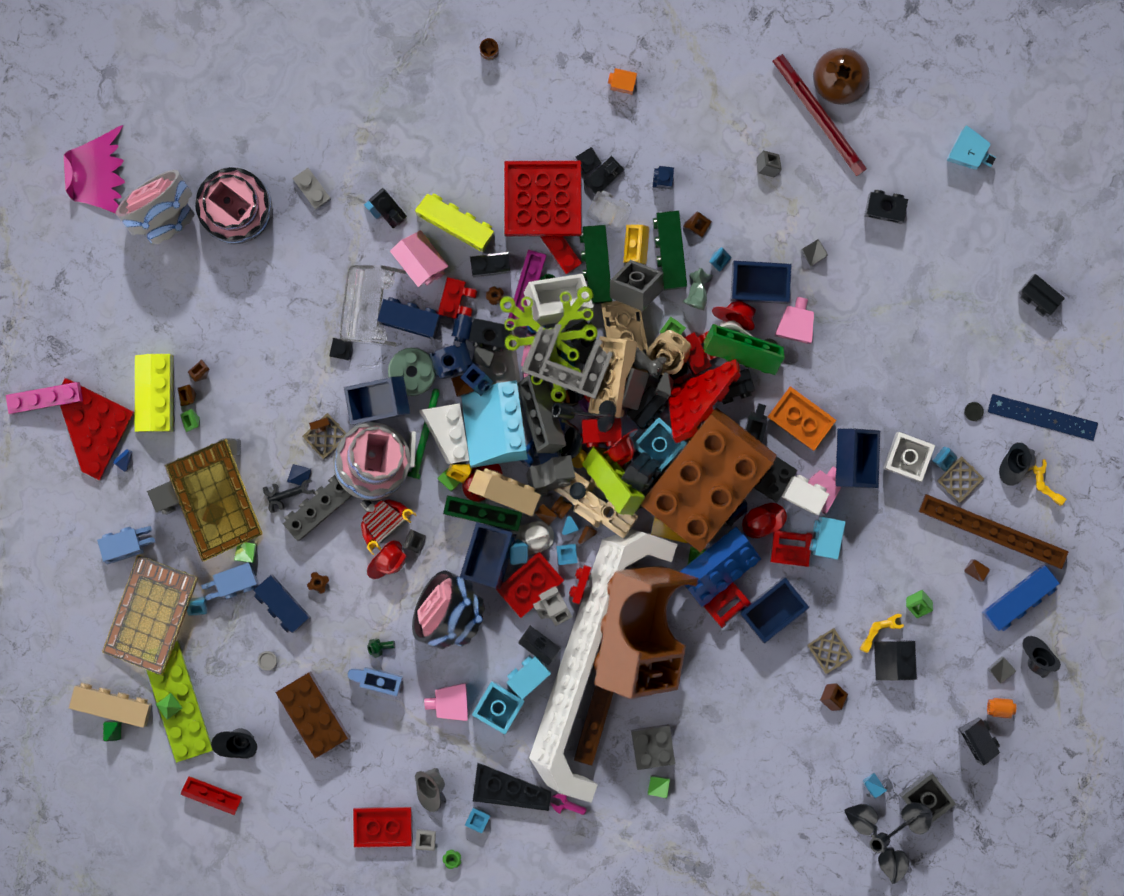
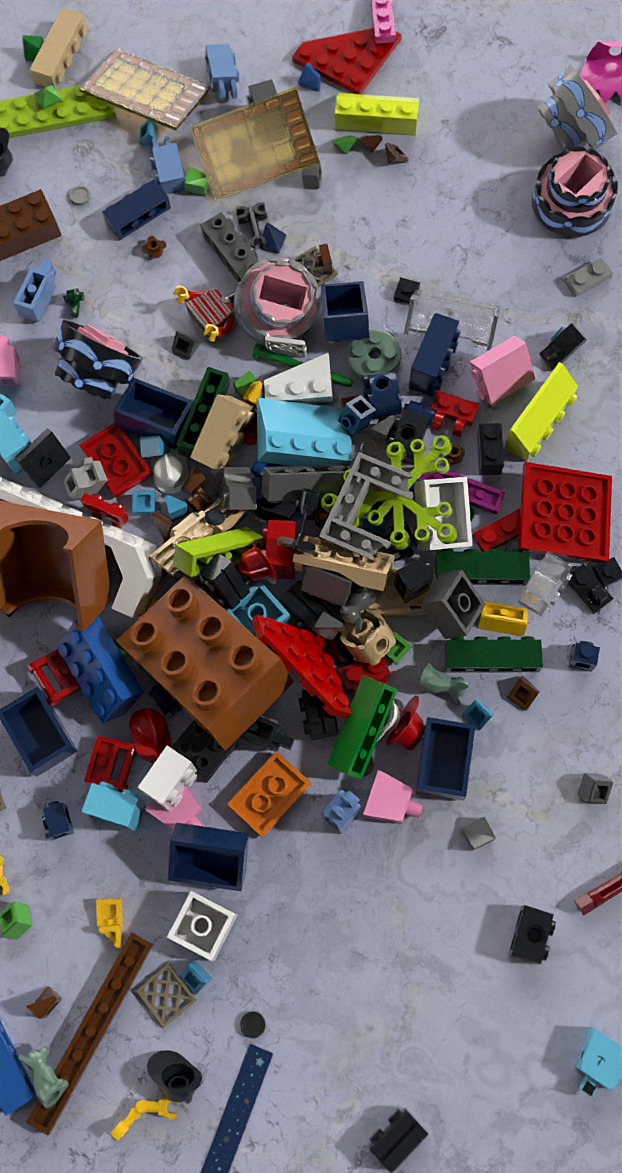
camera: 100 degrees right, 15 degrees down
(387, 561) = (166, 312): red piece -> none
(579, 459) = (255, 525): yellow piece -> none
(622, 318) = (413, 579): none -> black brick
(811, 359) = (342, 810): none -> medium blue hinge
(841, 583) = (57, 820): none -> dark blue brick
(909, 530) = (110, 918): none -> yellow slope
(1032, 558) = (45, 1082): none -> sand green animal

